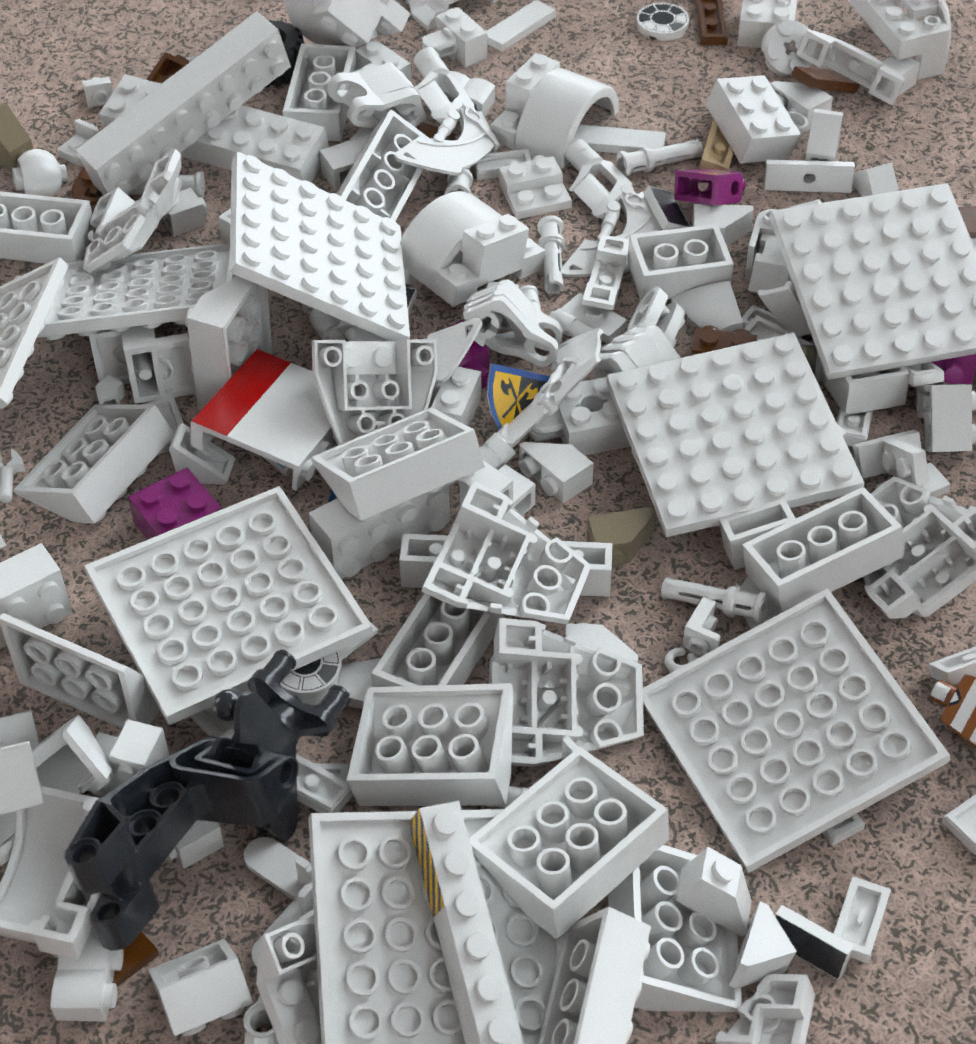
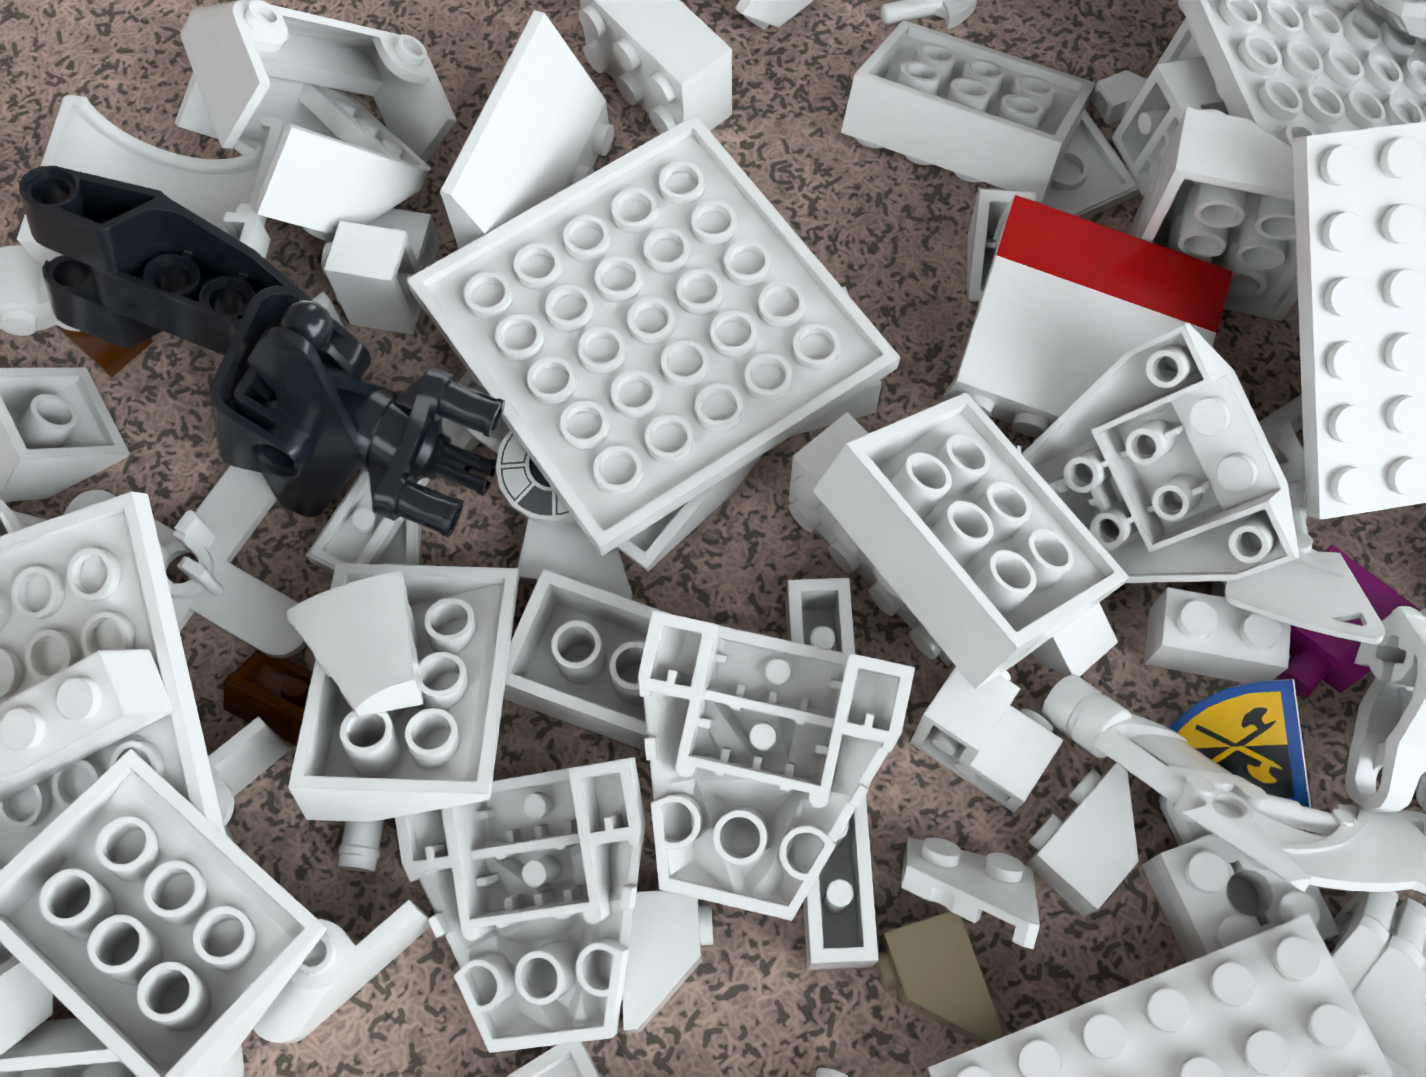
camera: 85 degrees right, 20 degrees up
(171, 504) = (875, 235): magenta brick -> none
(409, 744) = (364, 642): none -> white slope
(576, 509) = (973, 883): none -> white wing

